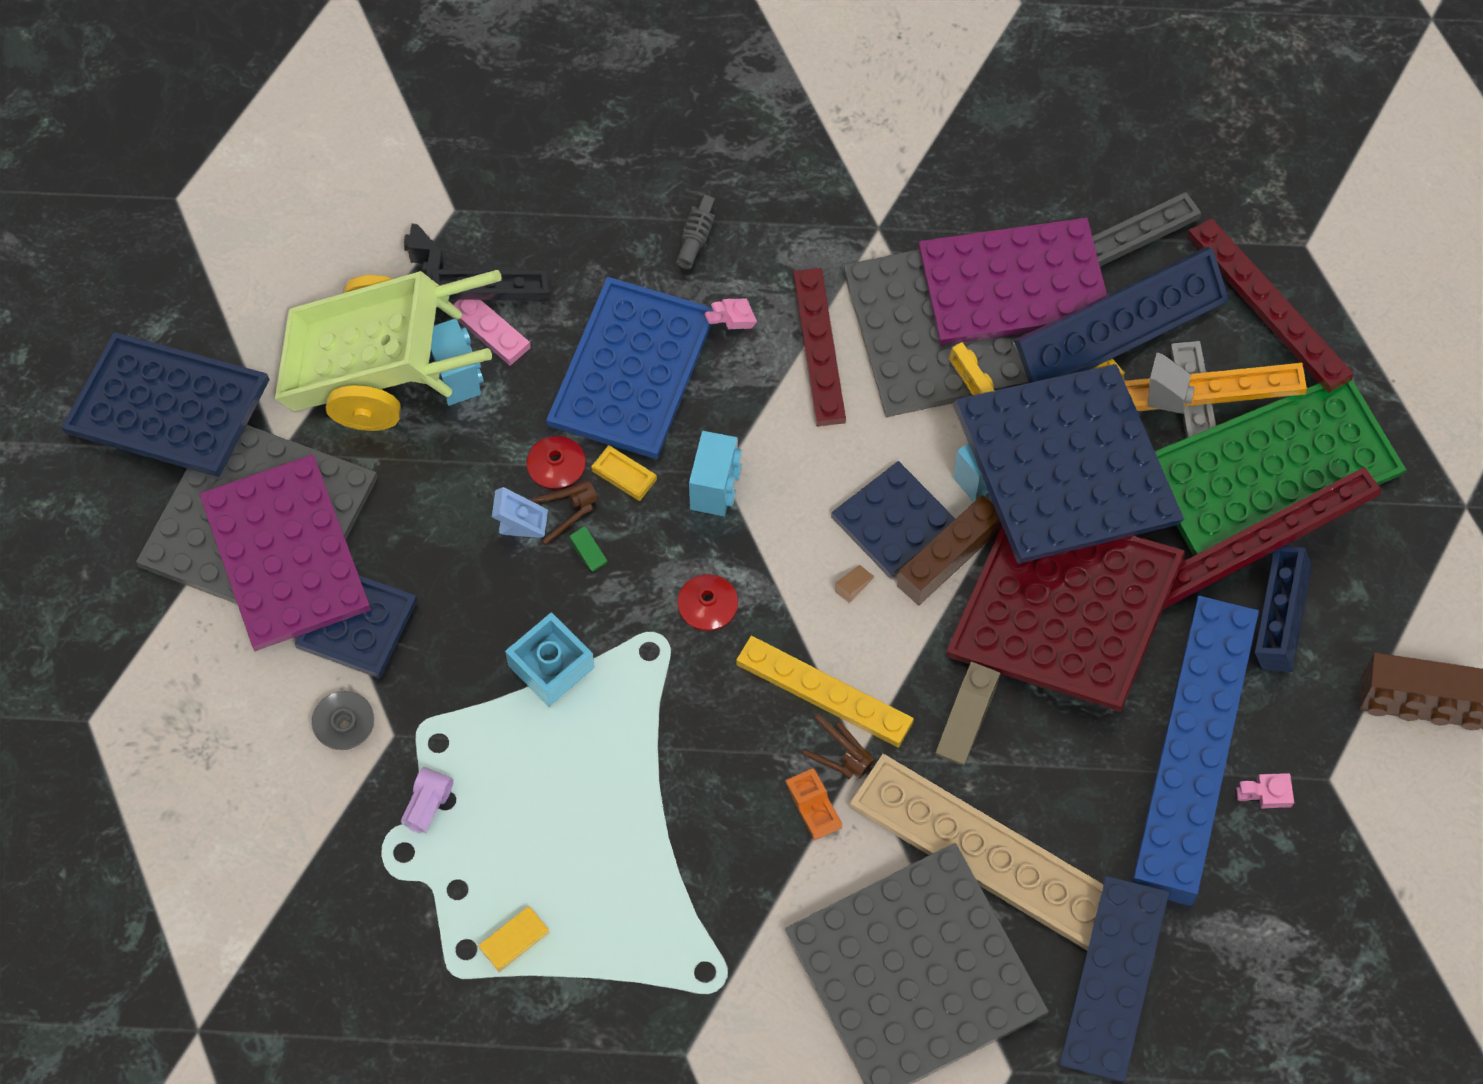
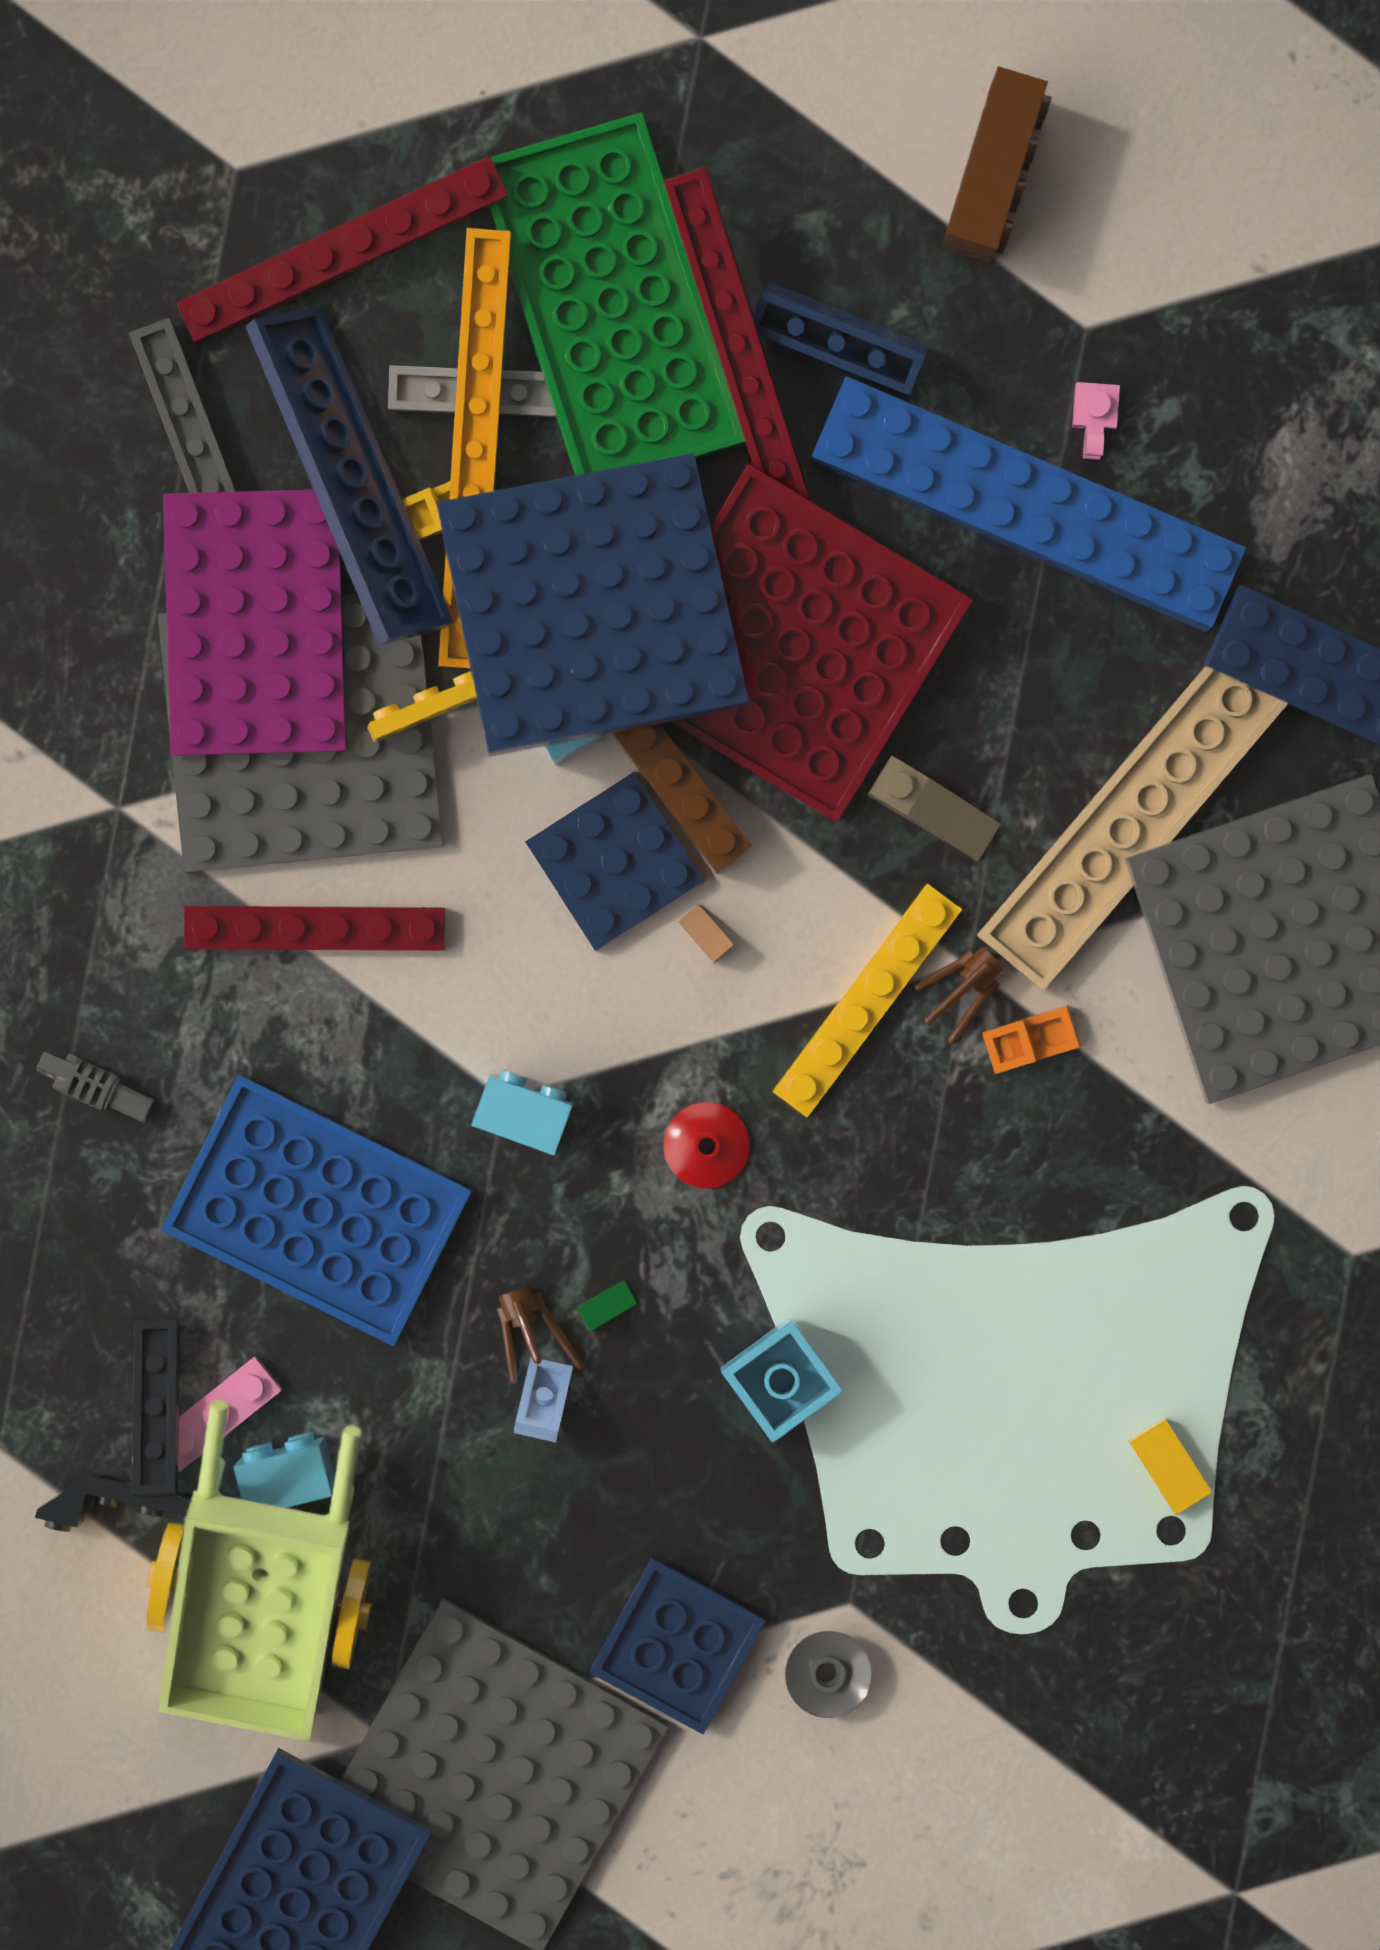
camera: 85 degrees left, 25 degrees up
(284, 552) = (560, 1742): magenta plate -> none
(429, 792) = (951, 1562): lavender piece -> none
(558, 473) = (458, 1314): red dish -> none
(624, 473) = (487, 1240): yellow tile -> none
(734, 312) = (247, 1048): bright pink plate -> none
(1169, 386) = (488, 430): light grey slope -> none

